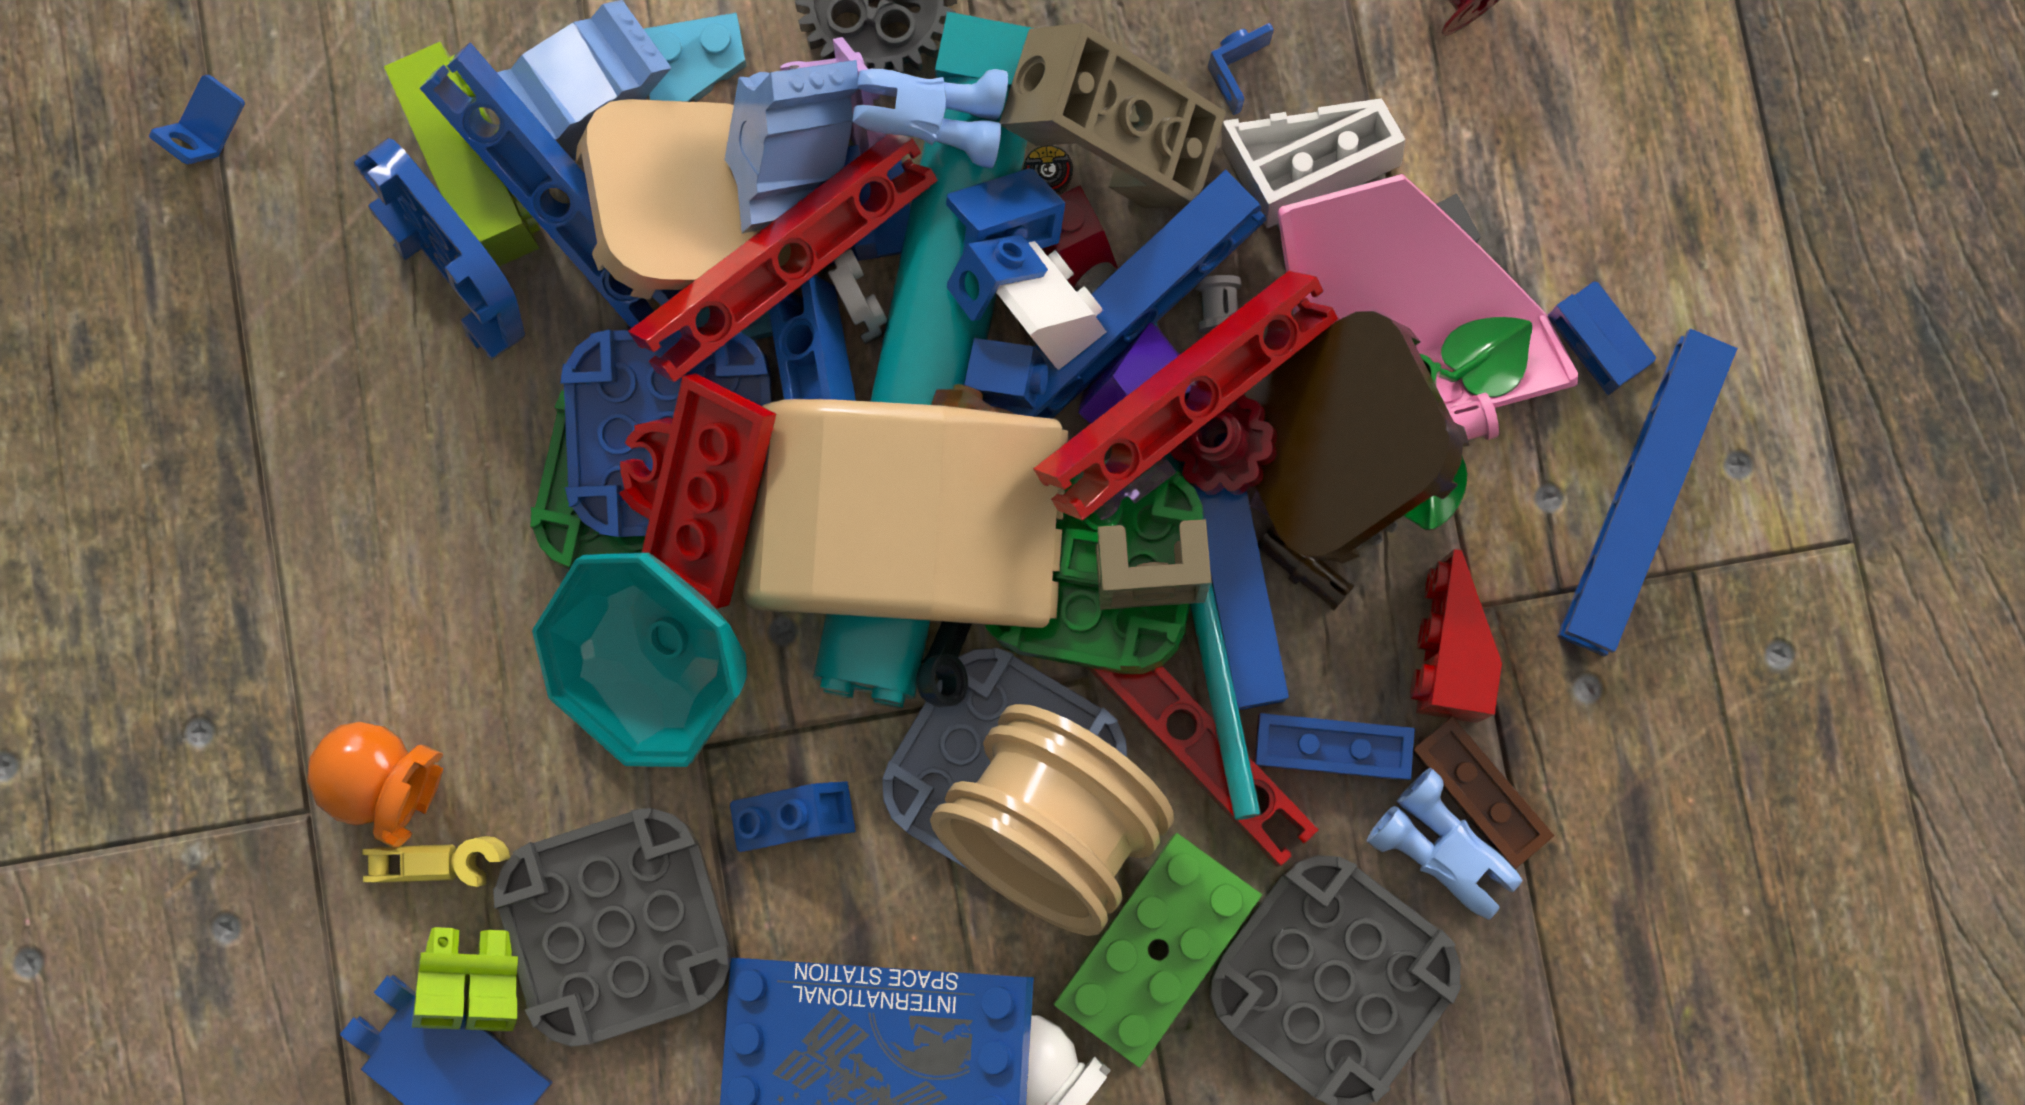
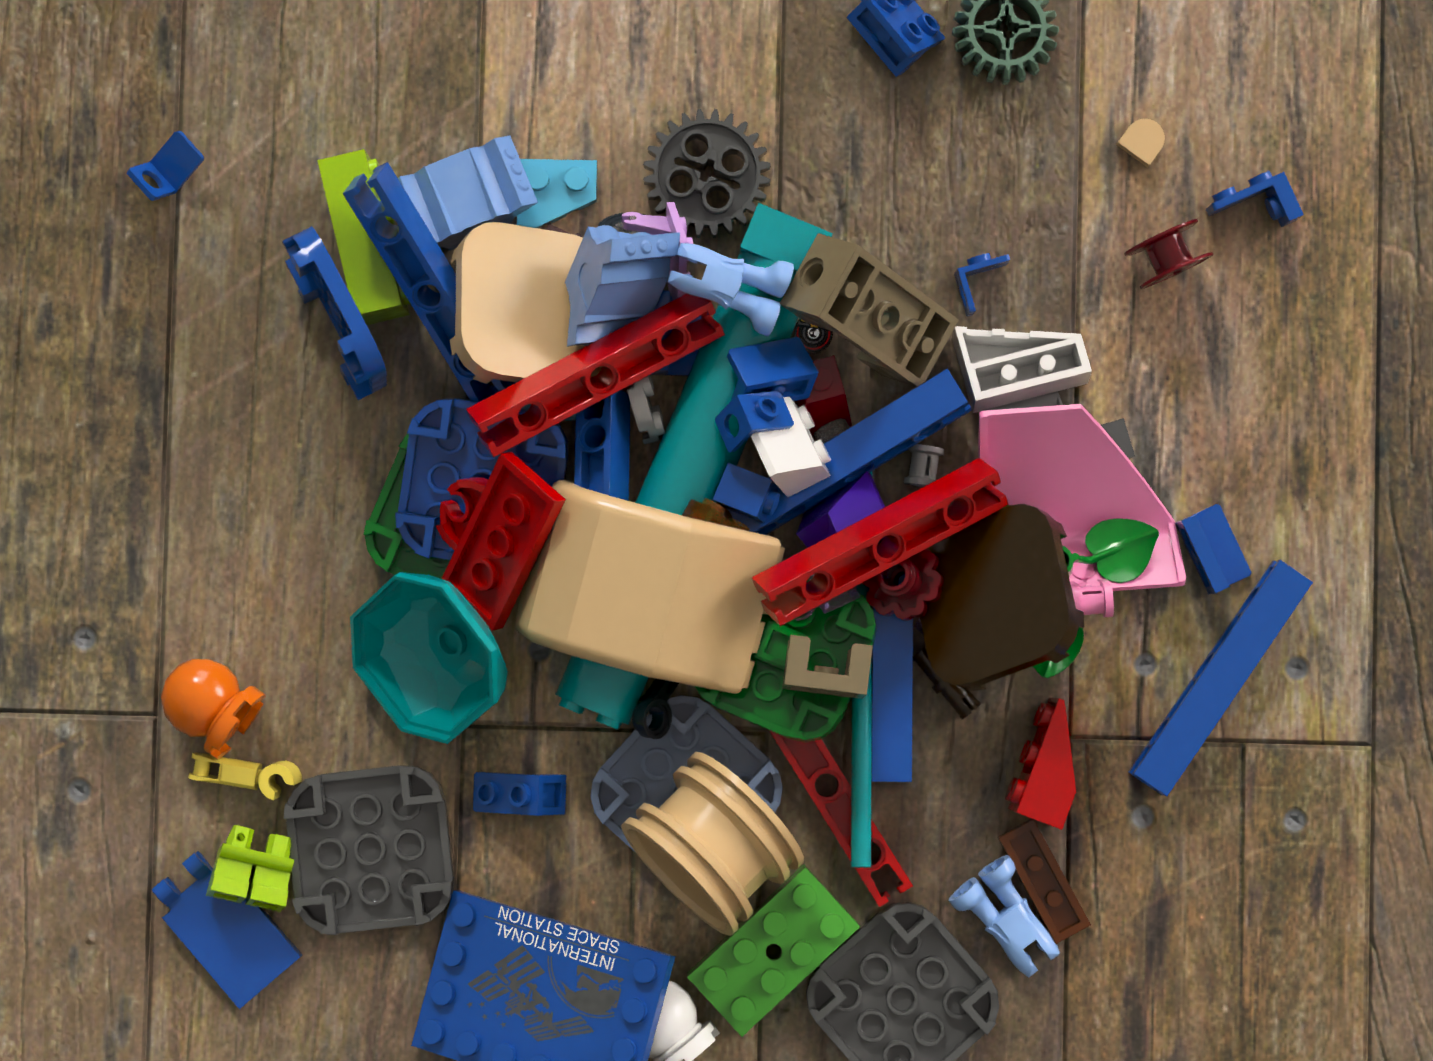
camera: 10 degrees right, 5 degrees up
(1334, 746) = (939, 823): blue plate -> none

